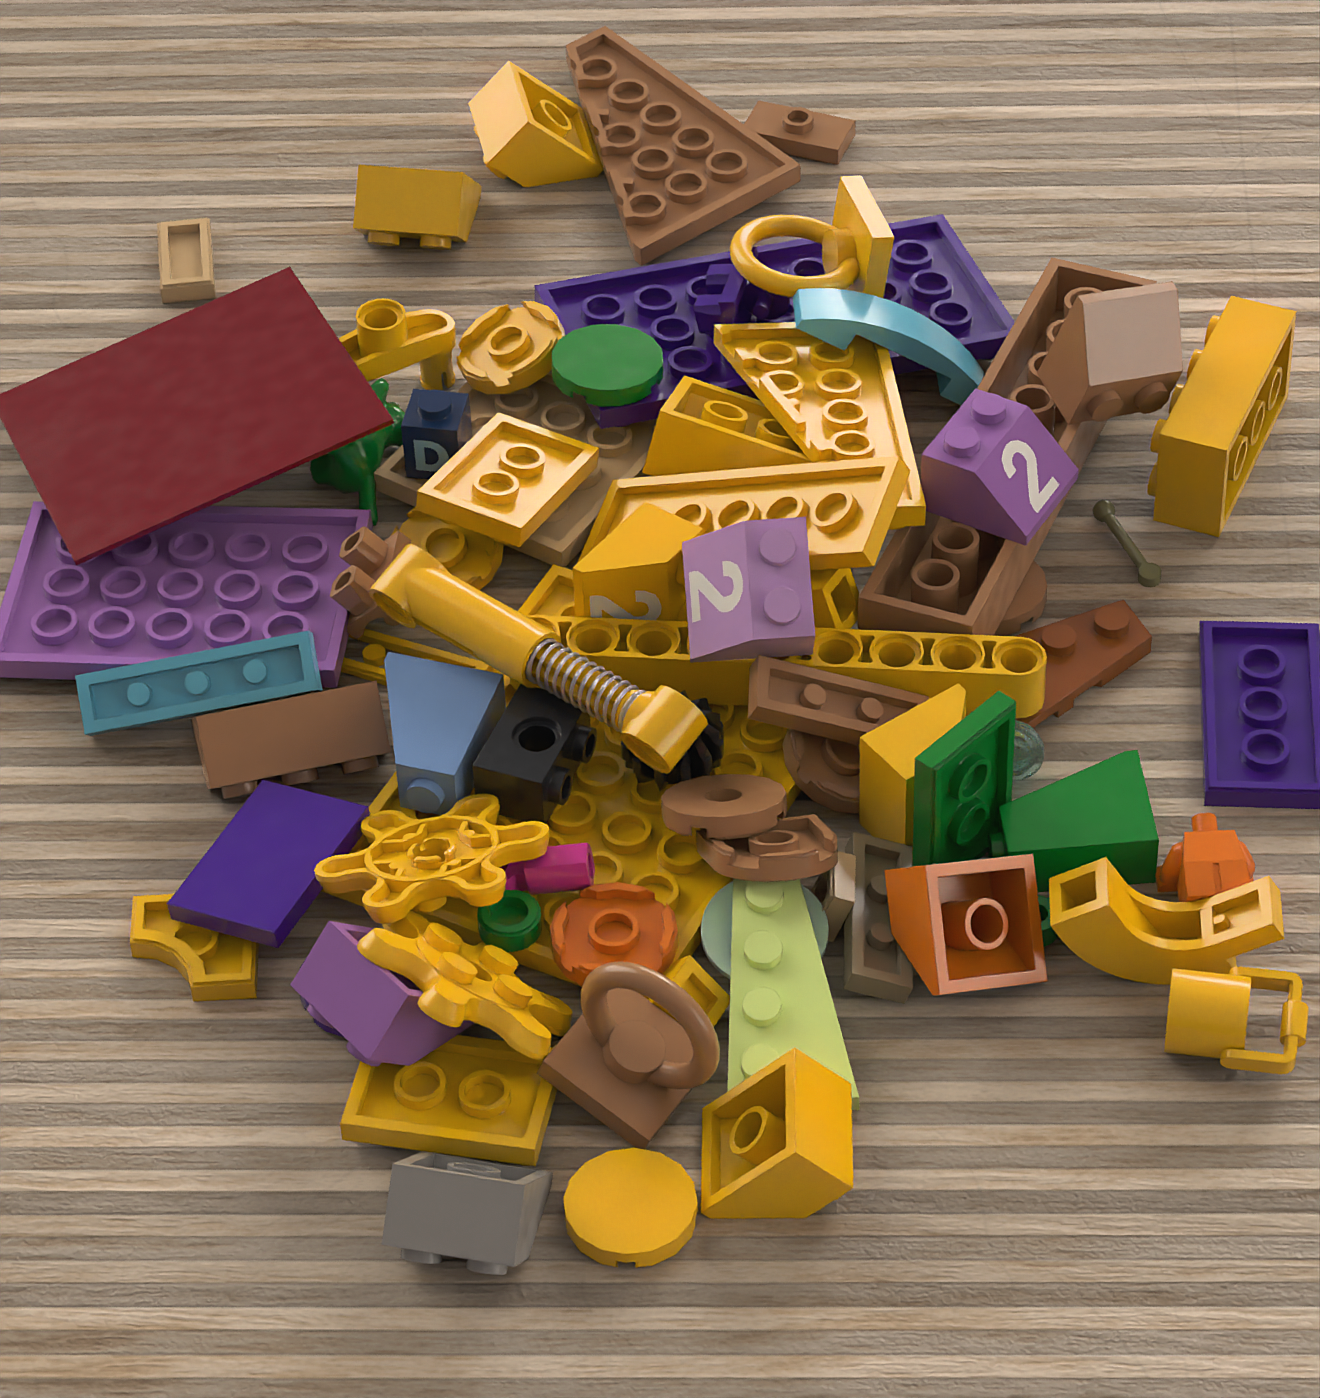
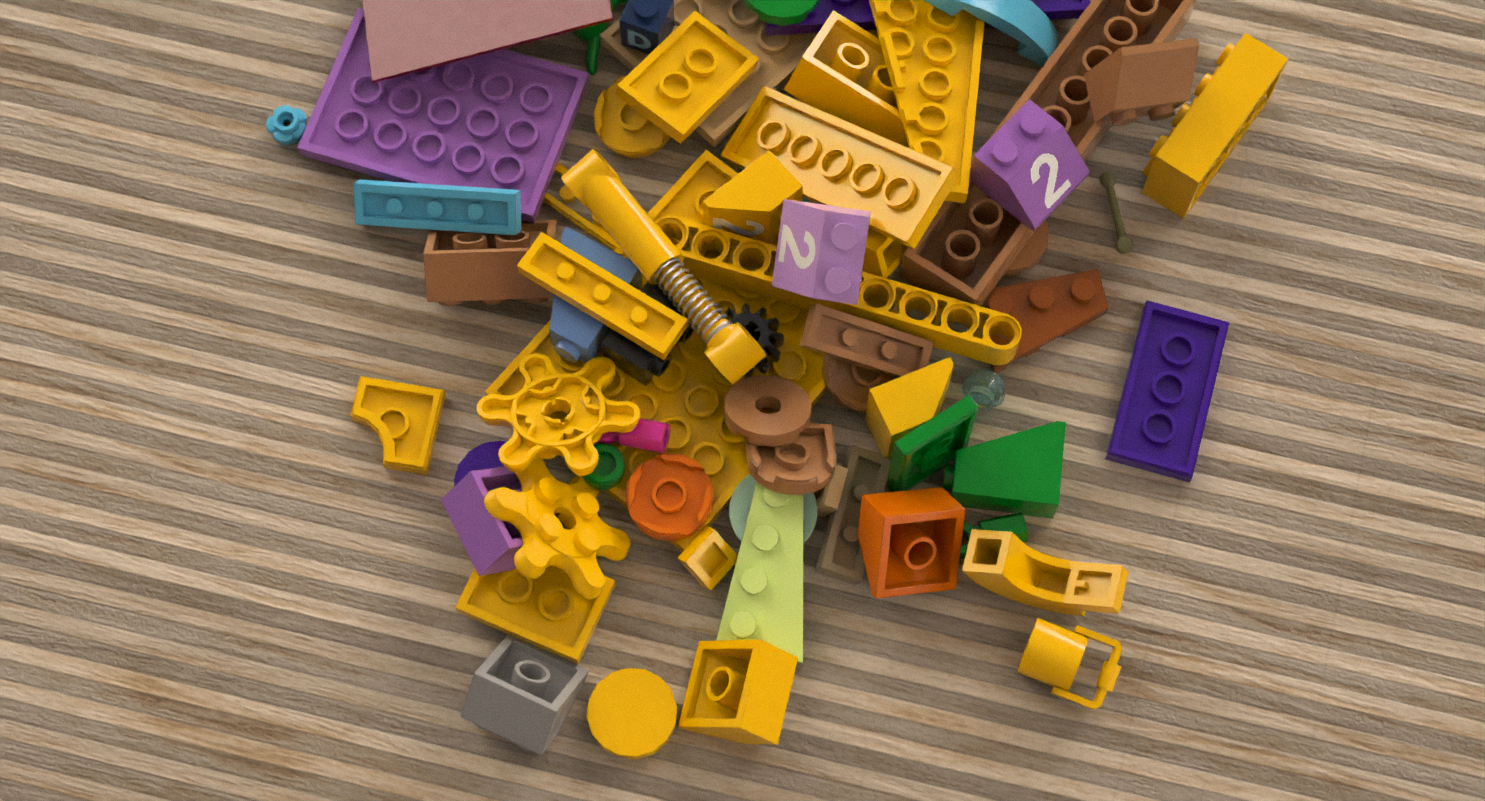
camera: 10 degrees right, 25 degrees up
(263, 863) = (450, 375): dark purple tile -> none
(367, 560) = (583, 135): medium nougat hips -> none
(461, 704) = (602, 295): none -> yellow plate
(630, 1057) = (657, 602): medium nougat tile -> none
(1205, 862) = (1088, 531): orange piece -> none

